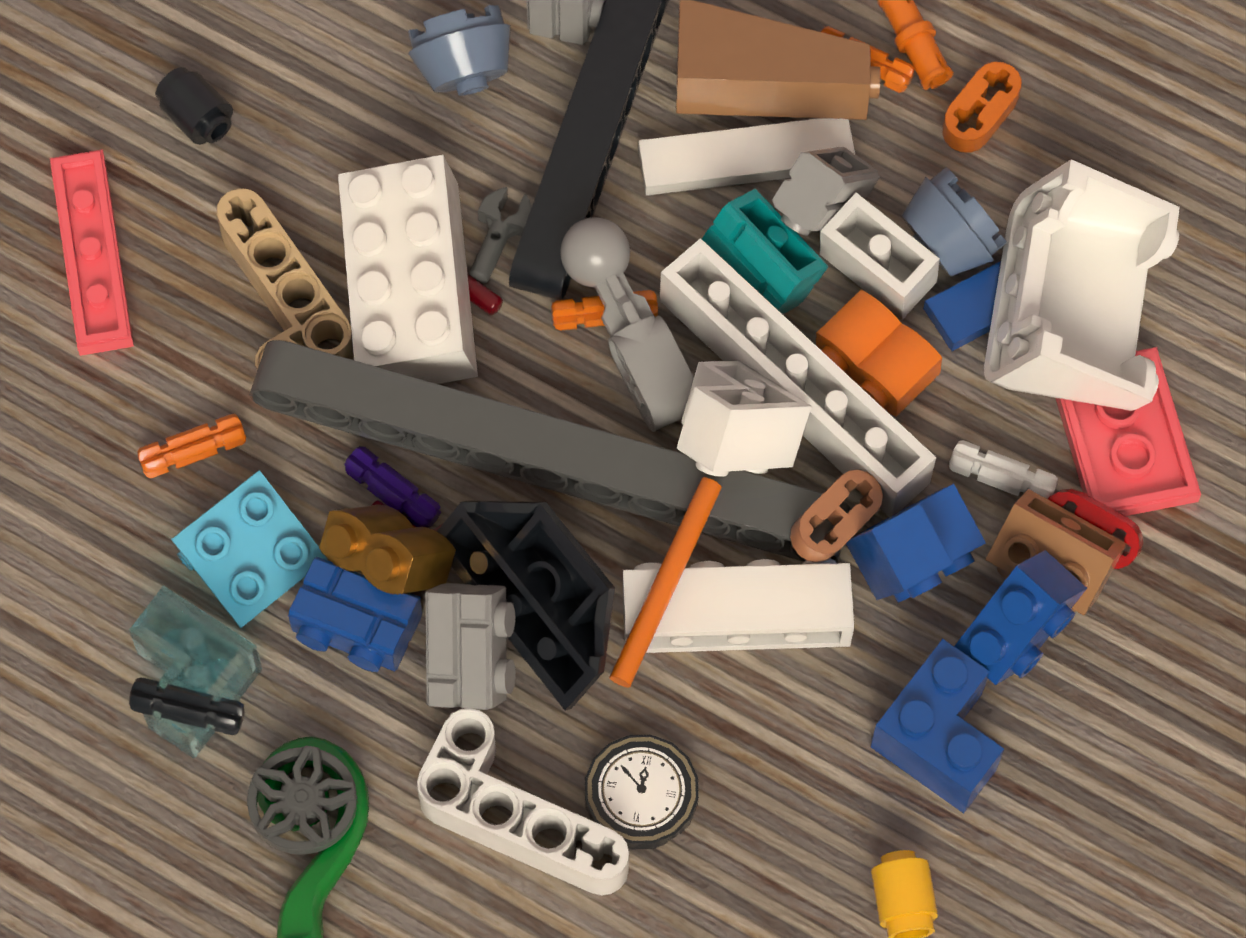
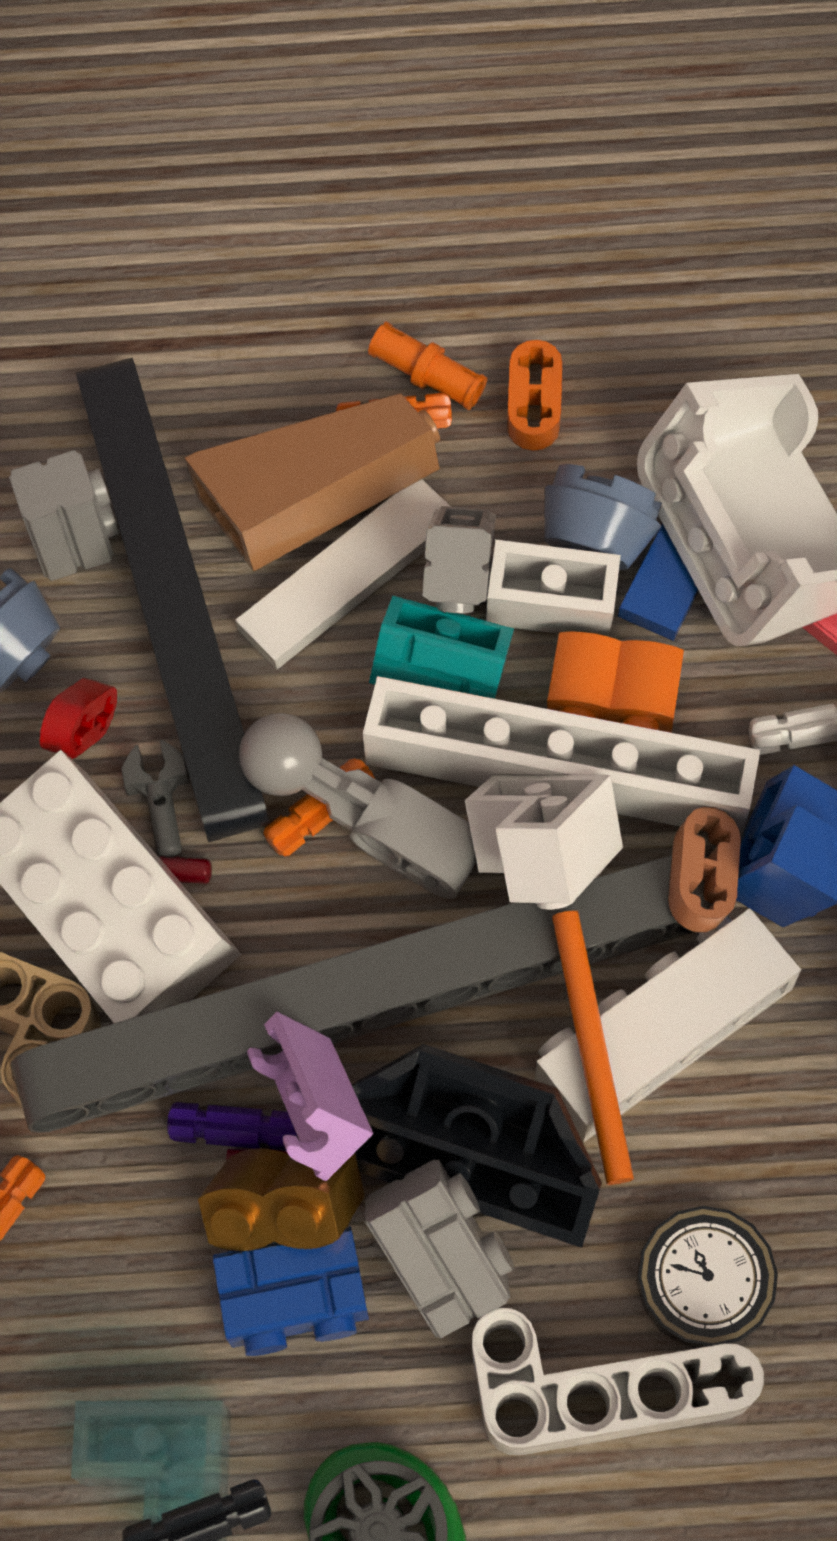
camera: 30 degrees left, 0 degrees up
(248, 548) = (130, 1292): medium azure hinge -> none
(452, 487) = (315, 1096): none -> lavender hinge
(476, 142) = (78, 717): none -> red beam

